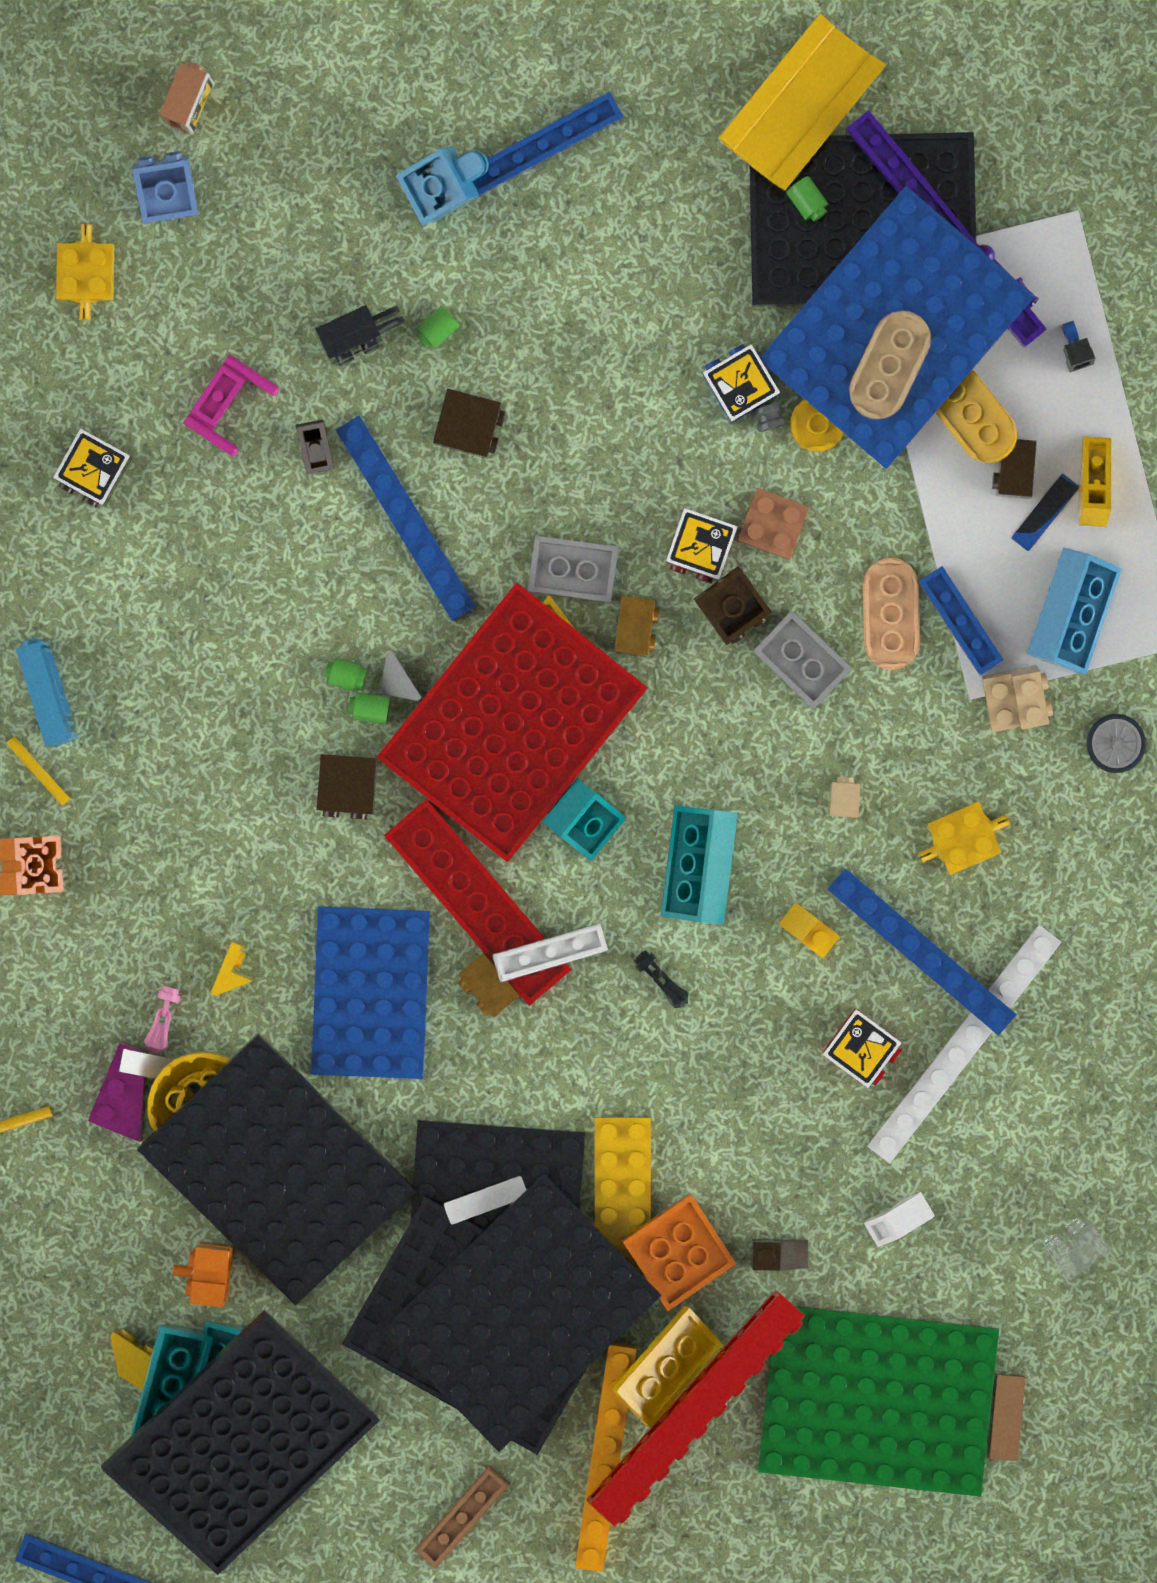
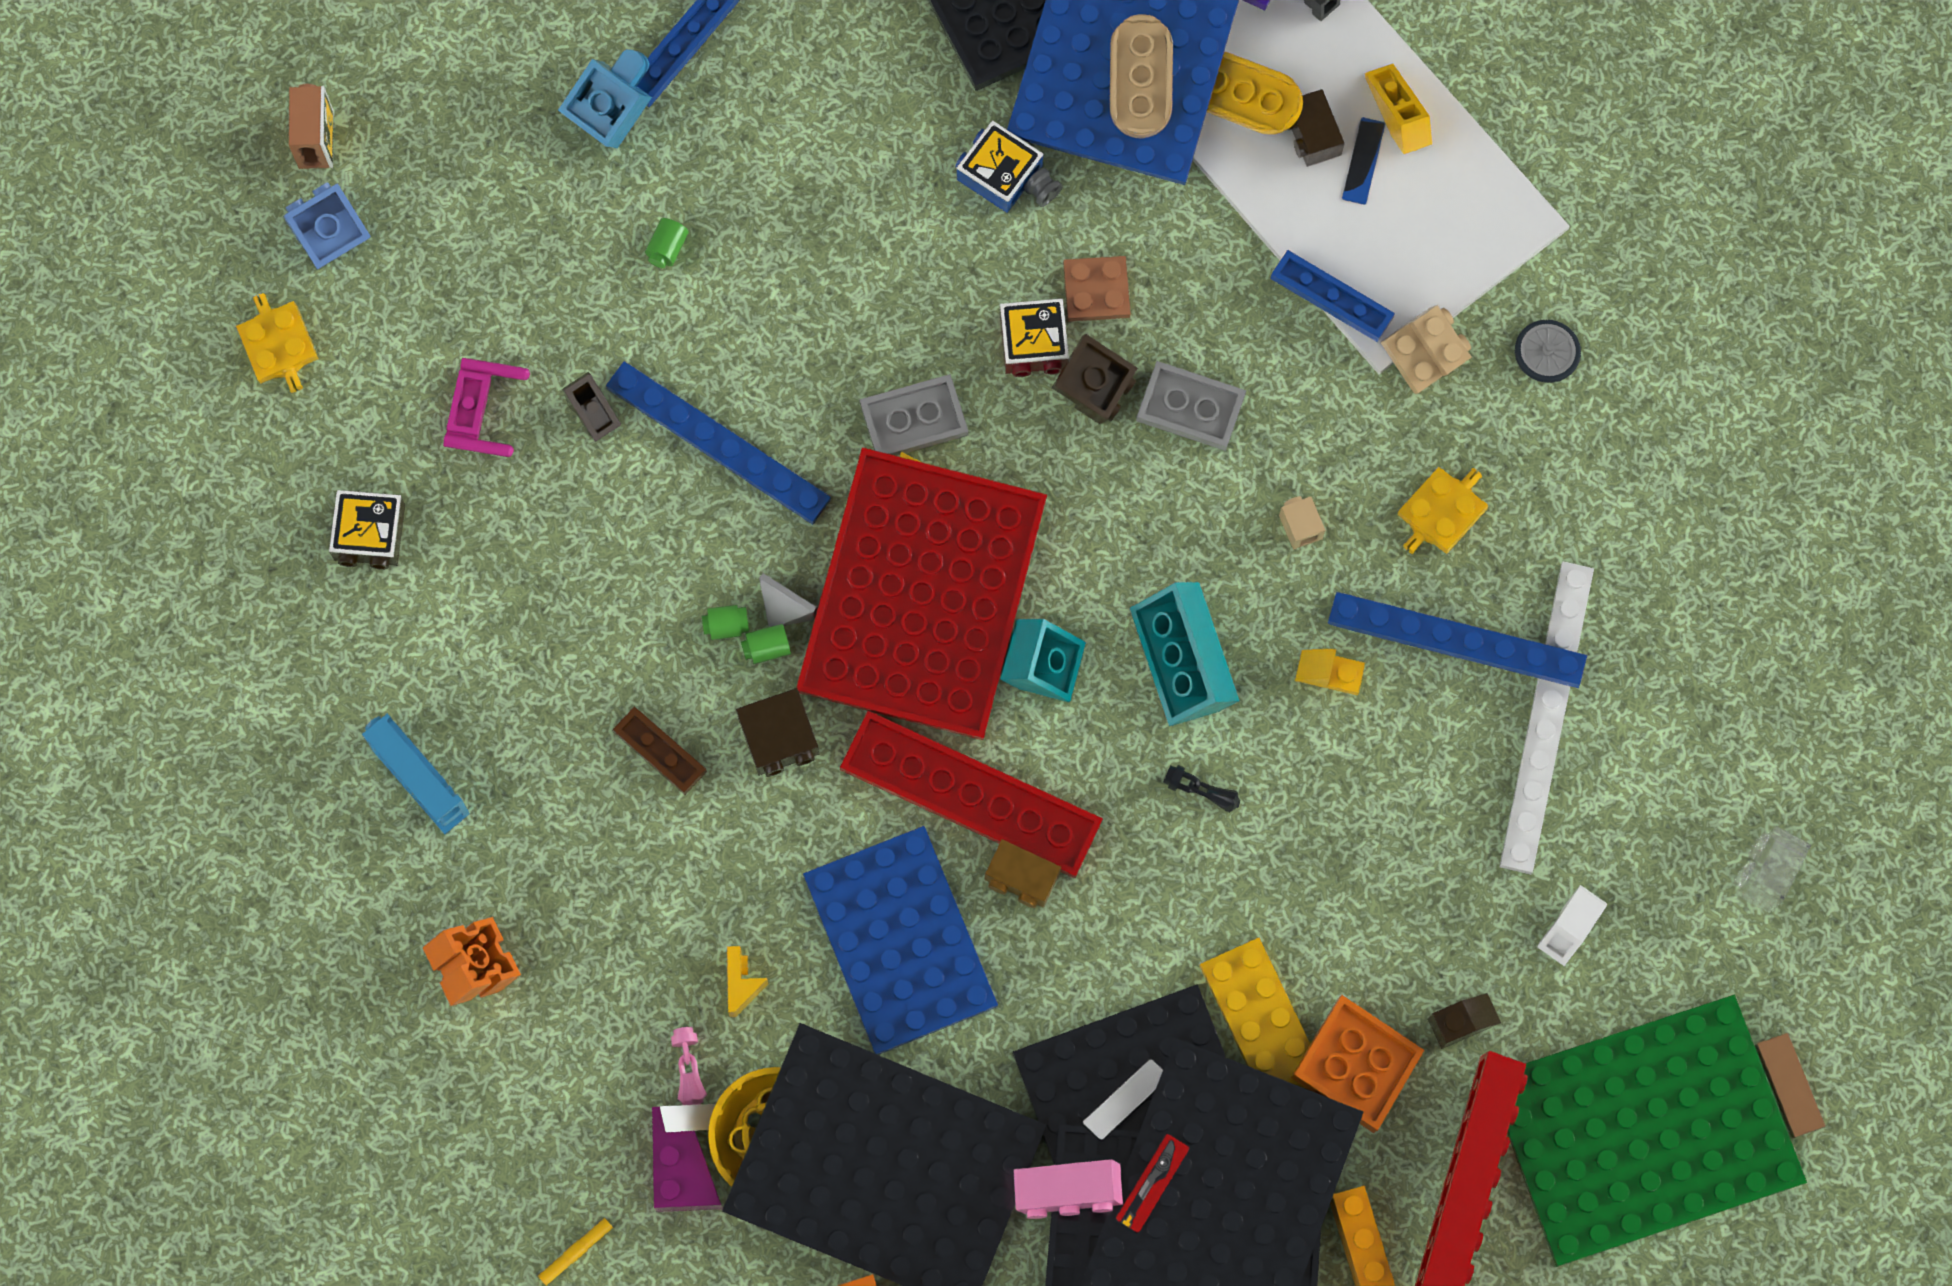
camera: 25 degrees left, 15 degrees down
(38, 771) = (440, 865): yellow bar -> none
(248, 756) = (659, 750): none -> reddish brown plate
(355, 333) = (584, 278): black brick -> none
(406, 1253) = (1068, 1188): none -> bright pink brick
(469, 424) = (741, 320): dark brown piece -> none
(473, 1277) = (1152, 1183): none -> red sticker
(550, 952) = (1071, 809): white tile -> none
(635, 626) = (1005, 444): pearl gold brick -> none
(667, 1366) = (1406, 1190): yellow plate -> none
(813, 429) = (1093, 186): yellow tile -> none
(862, 1048) = (1445, 764): piece -> none
(891, 613) = (1258, 324): light nougat tile -> none
(1074, 610) = (1441, 237): dark azure slope -> none

